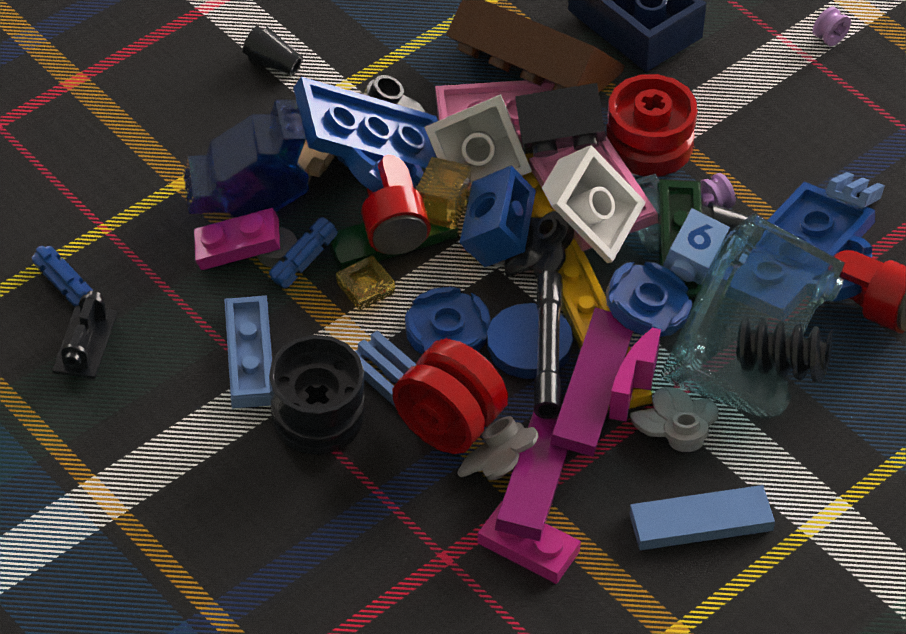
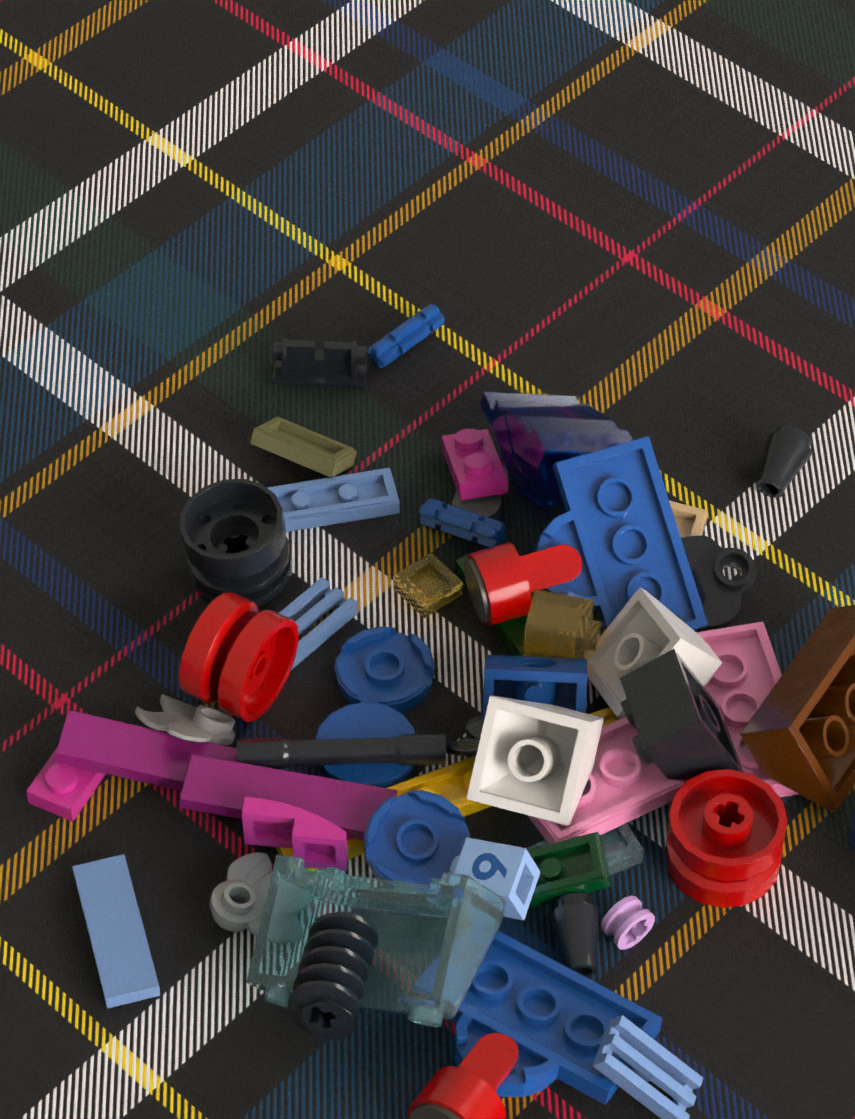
camera: 85 degrees right, 0 degrees up
(187, 356) = (304, 446): none -> olive tile

